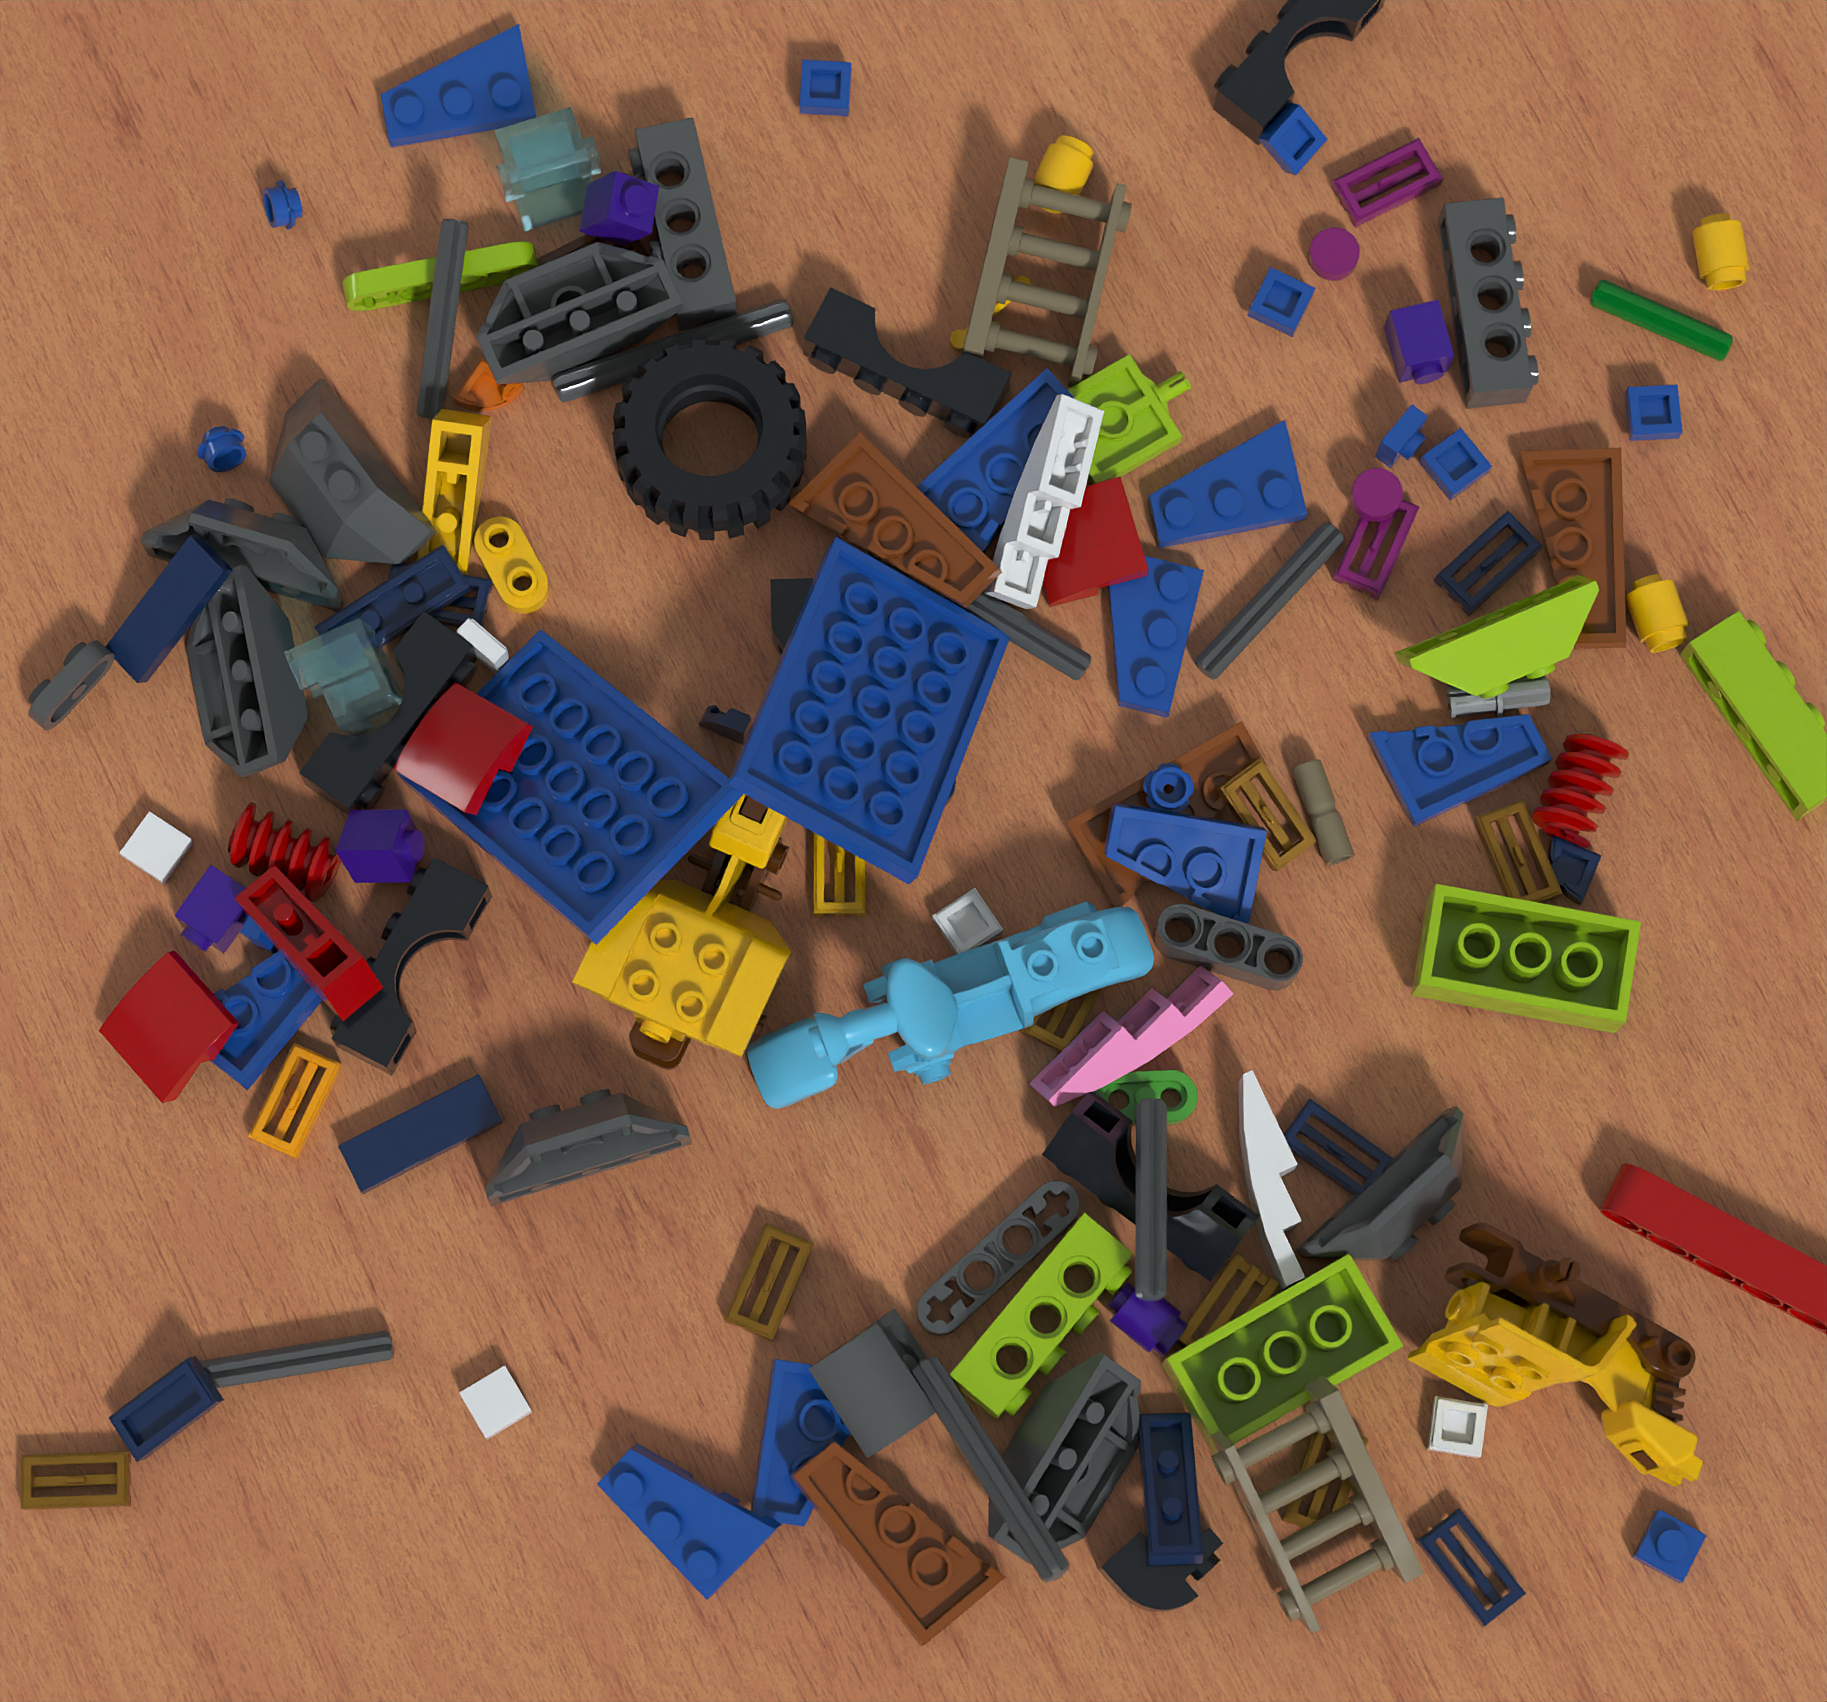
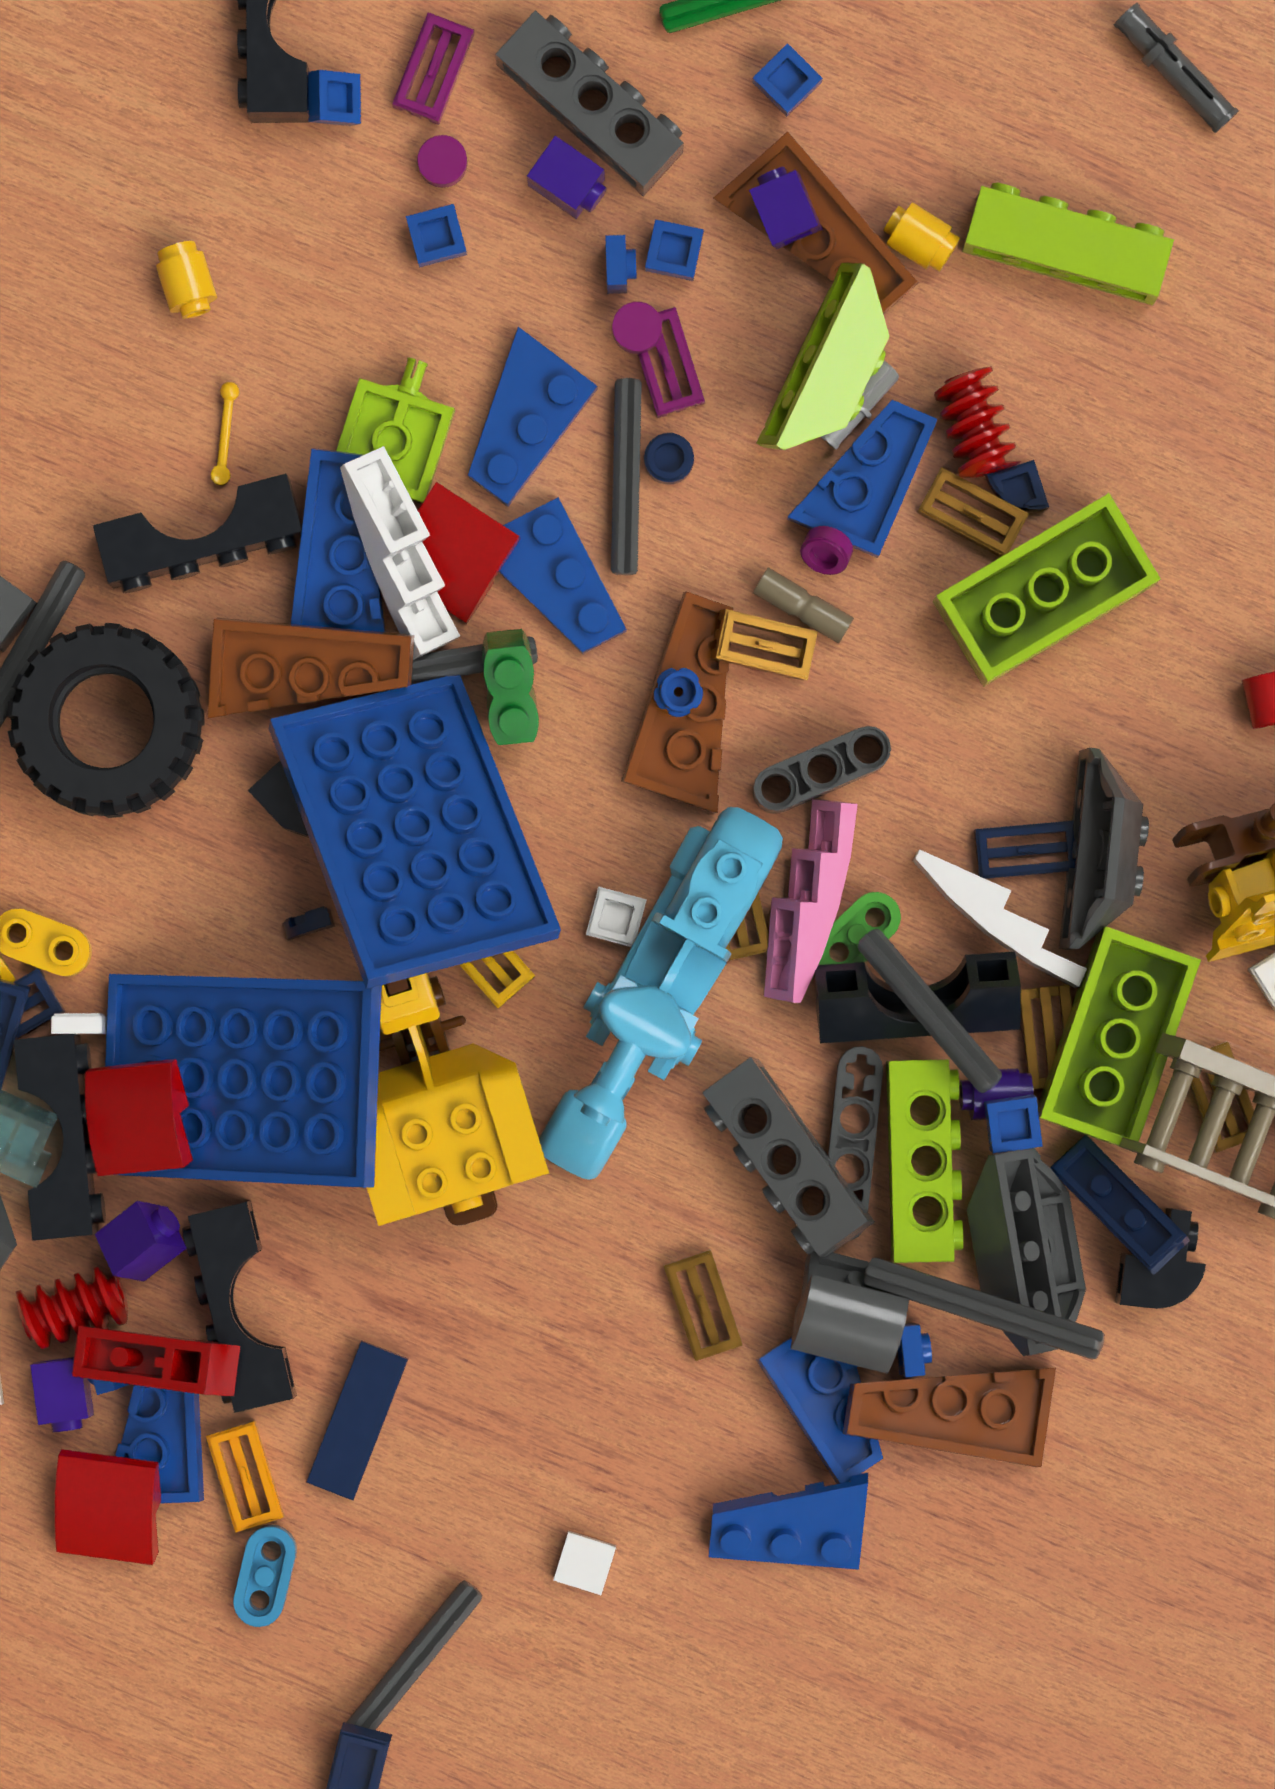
camera: 35 degrees left, 10 degrees up
(239, 1187) = (266, 1575): none -> dark azure plate
(581, 1143) = (480, 1325): dark grey wedge -> none
(904, 1460) = (913, 1351): none -> blue plate
(941, 1300) = (843, 1212): none -> dark grey brick
(1009, 239) = (216, 413): dark tan fence -> none
(1034, 687) = (510, 690): none -> green brick
(1140, 1346) = (1013, 1123): none -> blue plate
(1195, 856) = (736, 726): blue wing -> none
(1315, 615) = (669, 458): none -> dark blue tile
(1378, 784) = (826, 550): none -> magenta tile
(1458, 592) = (758, 347): dark blue tile -> none
(1570, 498) = (784, 207): none -> dark purple brick

